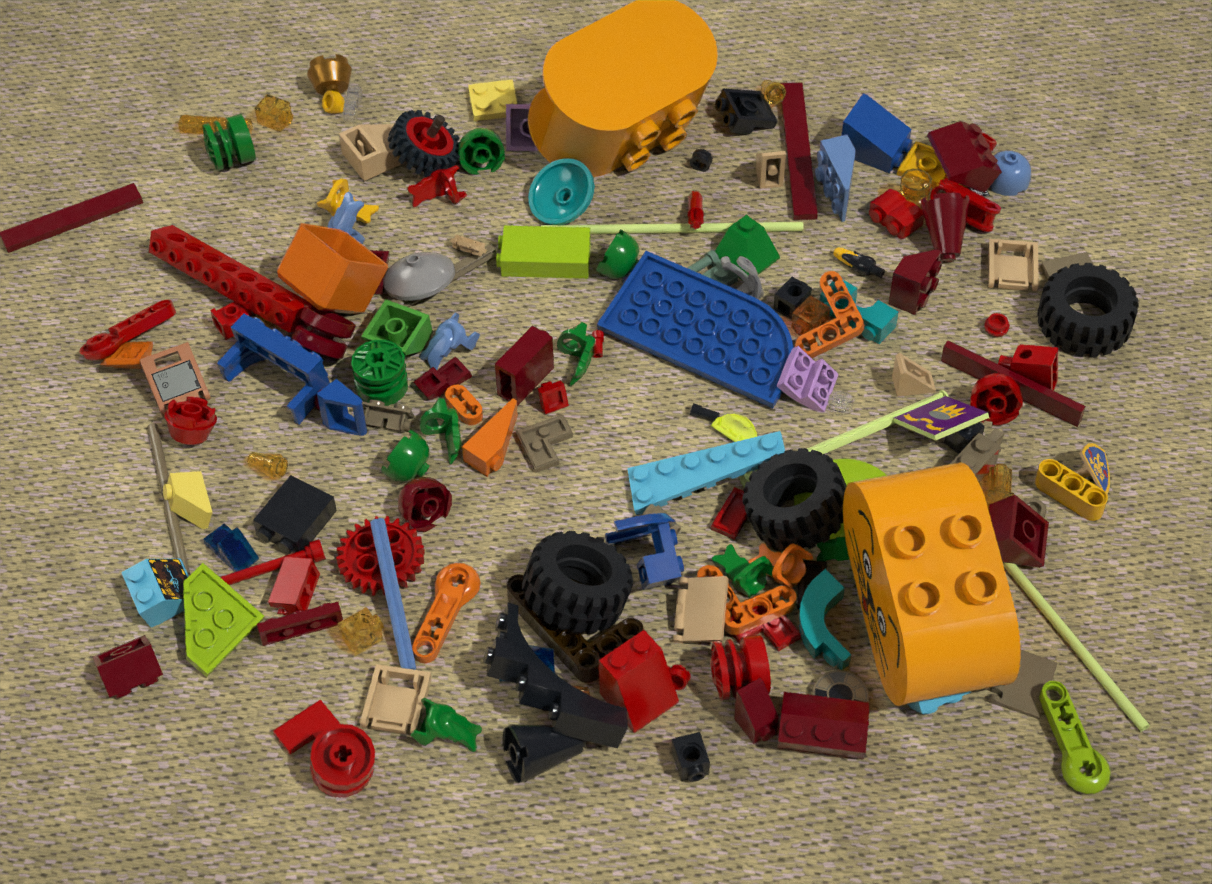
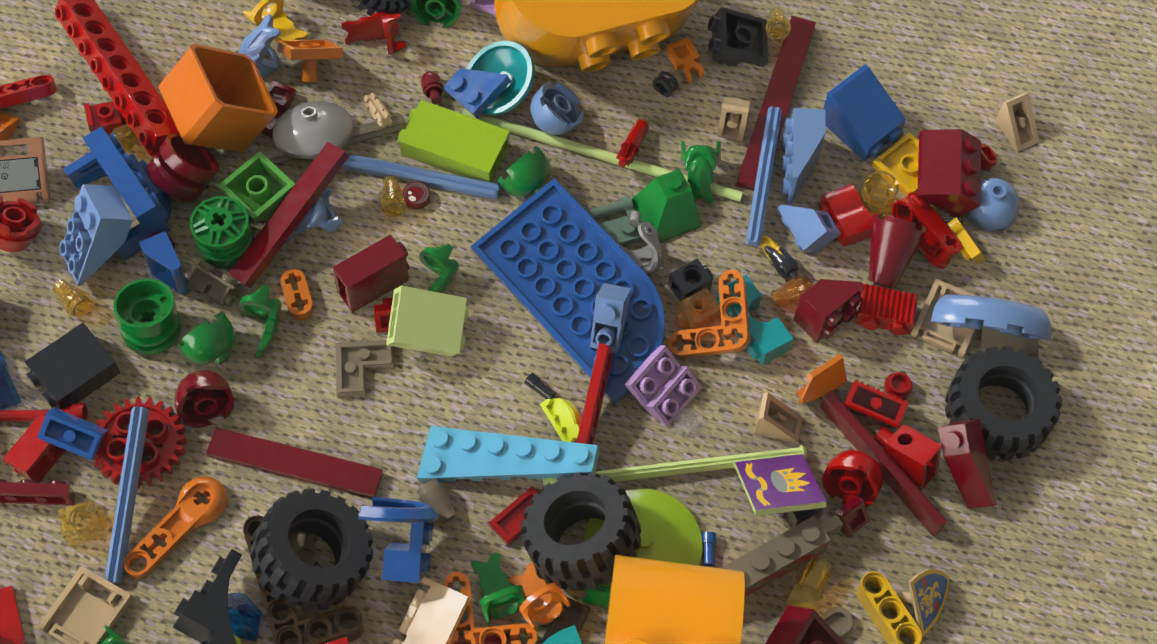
camera: 15 degrees right, 10 degrees up
(269, 401) = (94, 230): none -> medium blue slope
(323, 562) = (72, 433): none -> blue slope
(345, 454) = (147, 316): none -> green wheel
(391, 219) = (309, 52): none -> orange tile
(433, 340) = (289, 214): none -> dark red tile
(435, 382) = (293, 256): dark red slope -> none
(489, 445) = (304, 349): orange slope -> none
(503, 213) = (432, 86): none -> dark red cylinder
(512, 309) = (392, 199): none -> clear yellow cone
(517, 531) = (294, 462): none -> dark red tile
(527, 286) = (428, 177): none -> medium blue axle
(530, 301) = (416, 195): none -> dark red tile
(545, 206) = (476, 89): none -> wing
(590, 386) = (427, 321): none -> yellowish green brick
(598, 348) = (466, 262): red piece -> none
(620, 203) = (555, 109): none -> medium blue cylinder
(707, 136) = (685, 56): none -> orange plate
(743, 338) = (610, 316): none -> medium blue slope
(756, 395) = (595, 394): none -> red tile
(760, 207) = (700, 163): none -> green hair
(816, 204) = (763, 177): none -> medium blue axle
(870, 227) = (810, 227): none -> medium blue slope
(879, 280) = (791, 291): none -> clear orange cone
(939, 332) = (823, 380): none -> orange slope
(963, 272) = (887, 310): none -> red brick
(988, 339) = (876, 403): none -> red brick
(999, 108) = (1018, 122): none -> tan slope
(1008, 209) = (969, 248): none -> yellow plate
(1009, 425) = (853, 516): none -> dark red tile
(1035, 249) = (993, 314): none -> medium blue brick
(1083, 357) = (968, 462): none -> dark red slope

